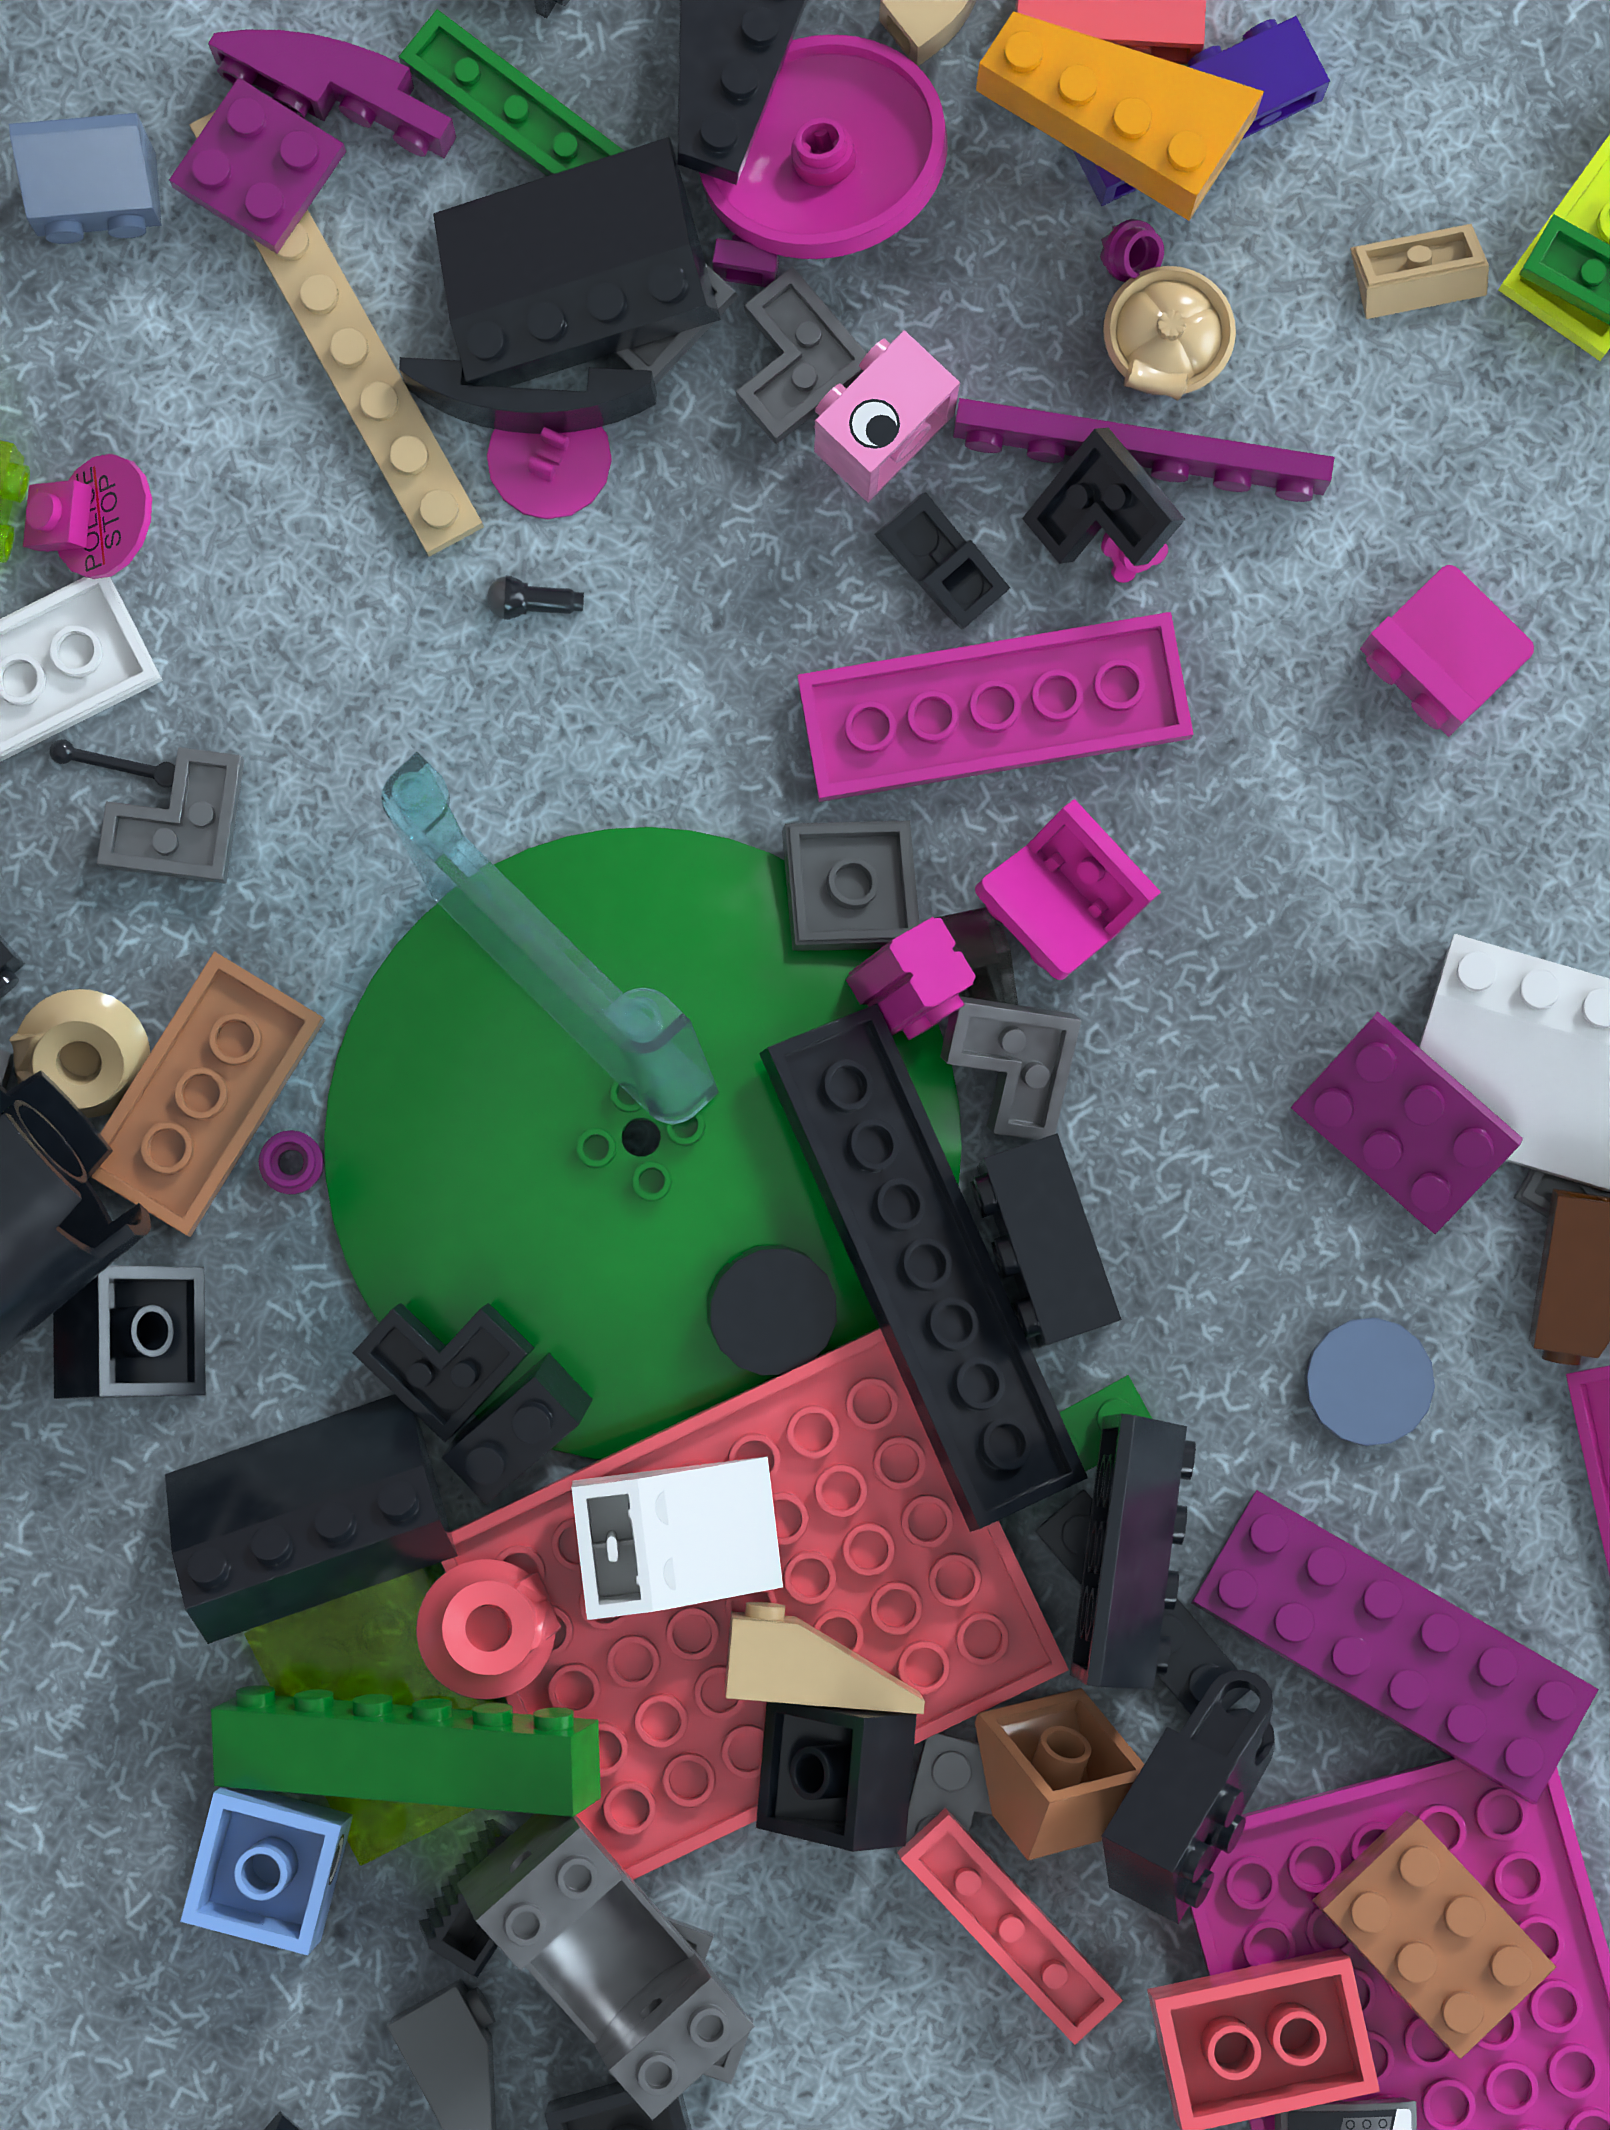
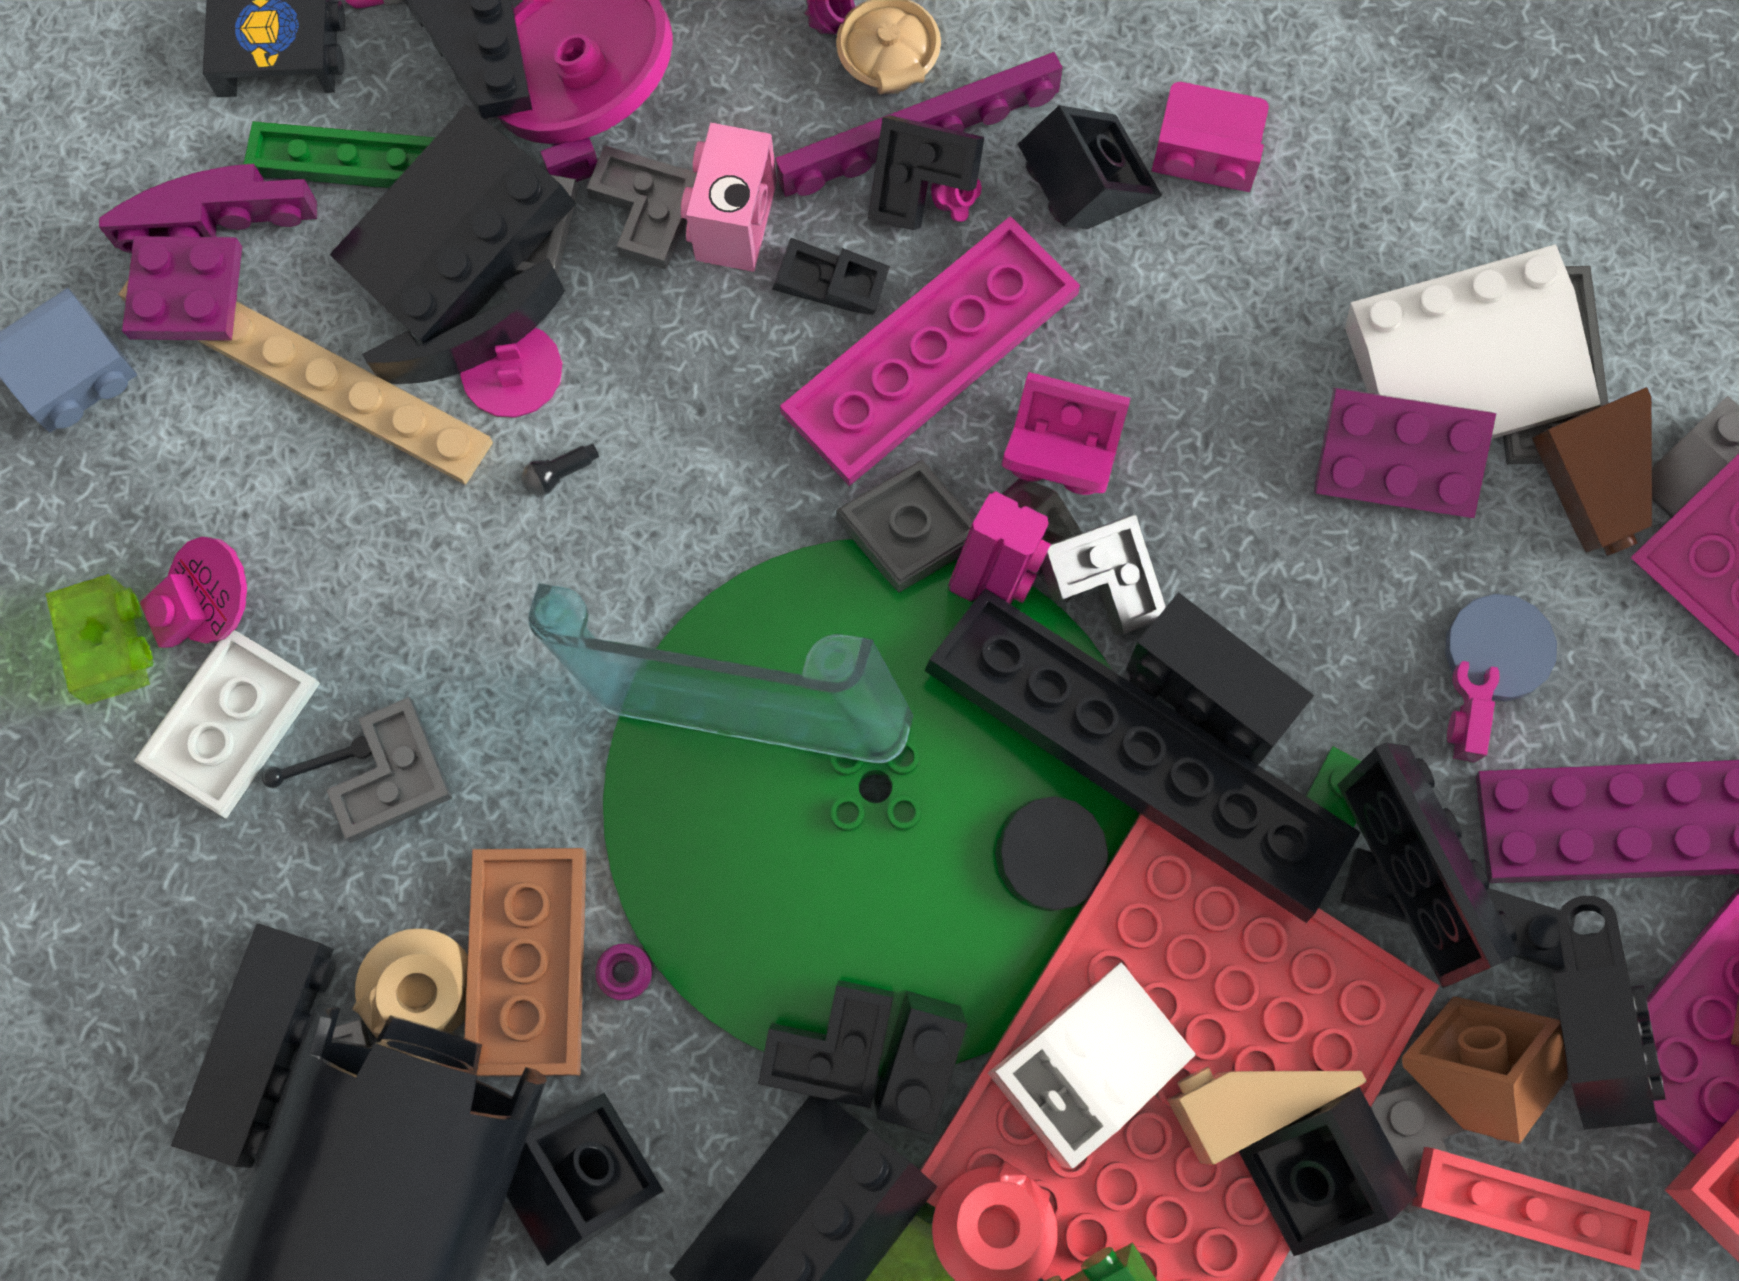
camera: 25 degrees left, 10 degrees down
(1277, 1441) = (1472, 724): none -> dark pink plate
(1291, 606) = (1086, 167): none -> black slope

